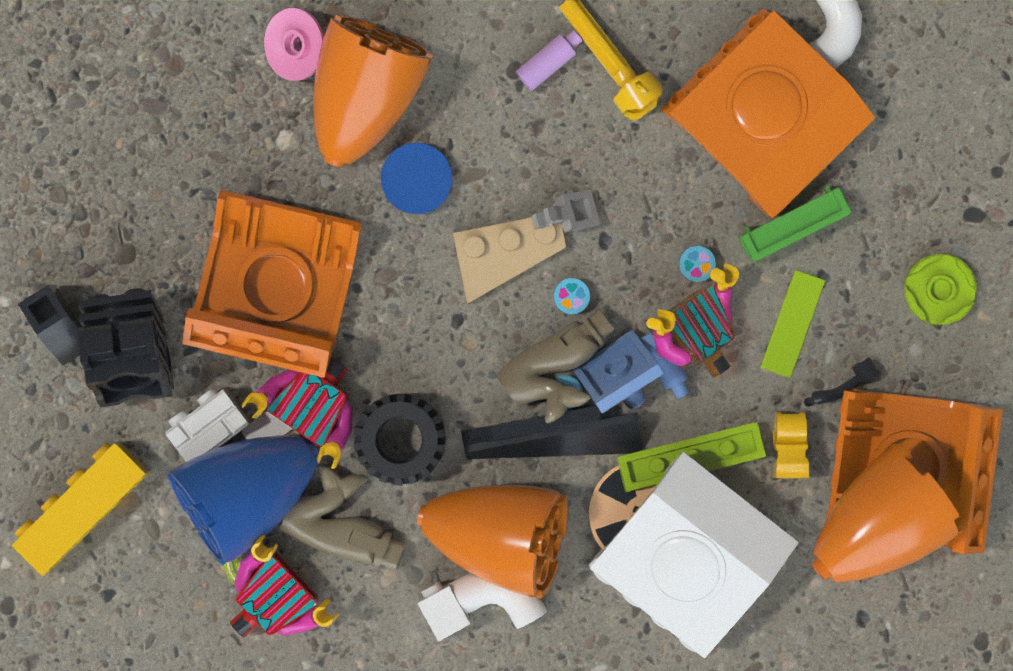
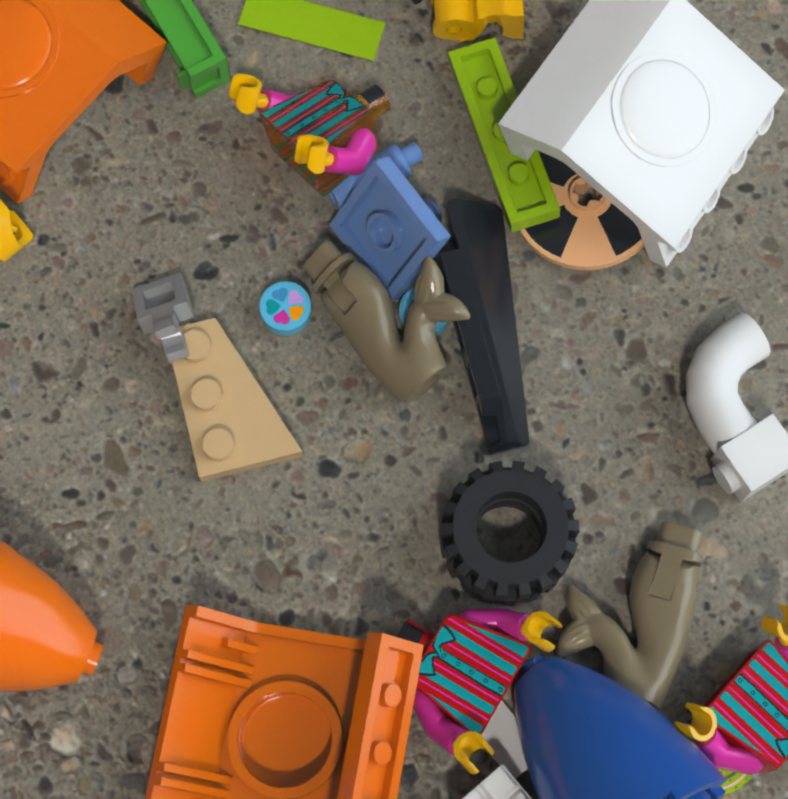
camera: 90 degrees left, 15 degrees down
(416, 178) = (120, 536): blue tile -> none
(500, 533) = (636, 382): orange cylinder -> none
(696, 263) = (233, 144): medium azure tile -> none

